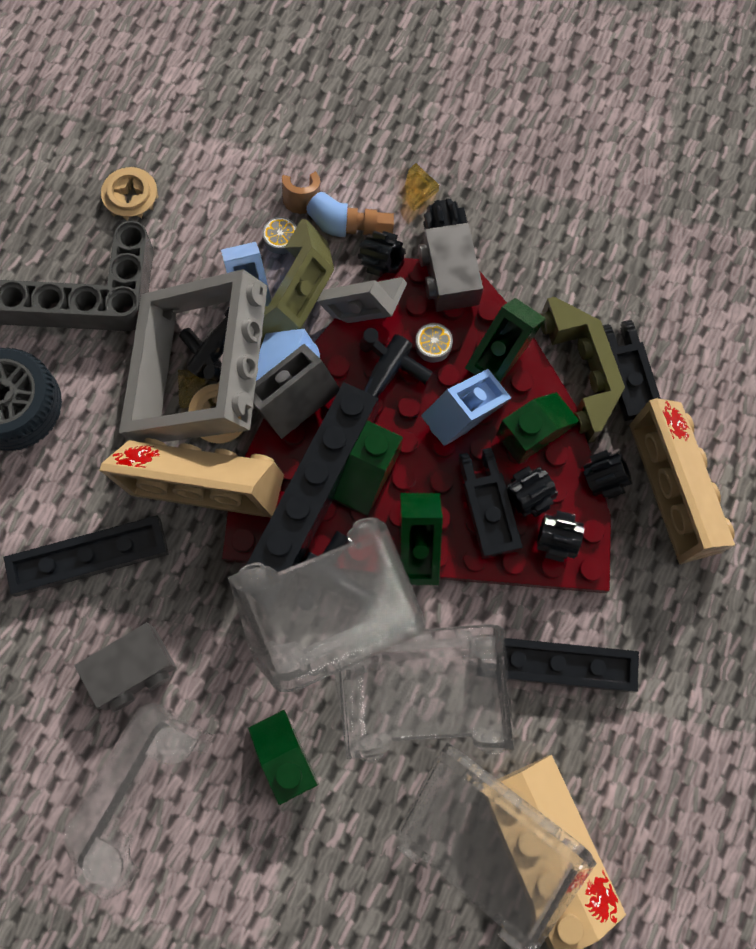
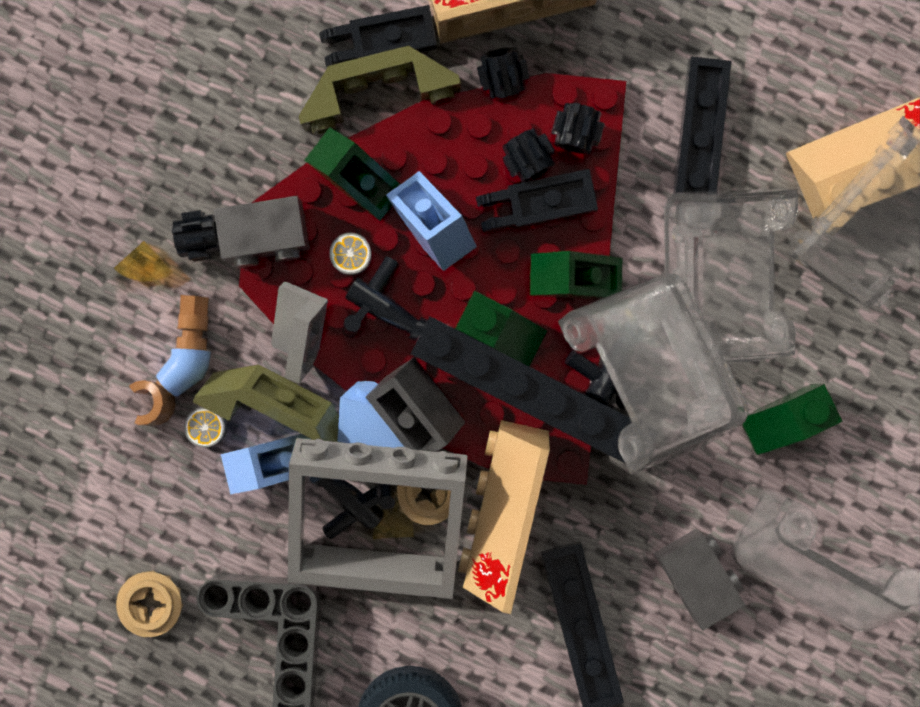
camera: 85 degrees left, 15 degrees up
(381, 253) = (236, 309): black gear -> none
(535, 426) = (452, 143): dark green slope -> none

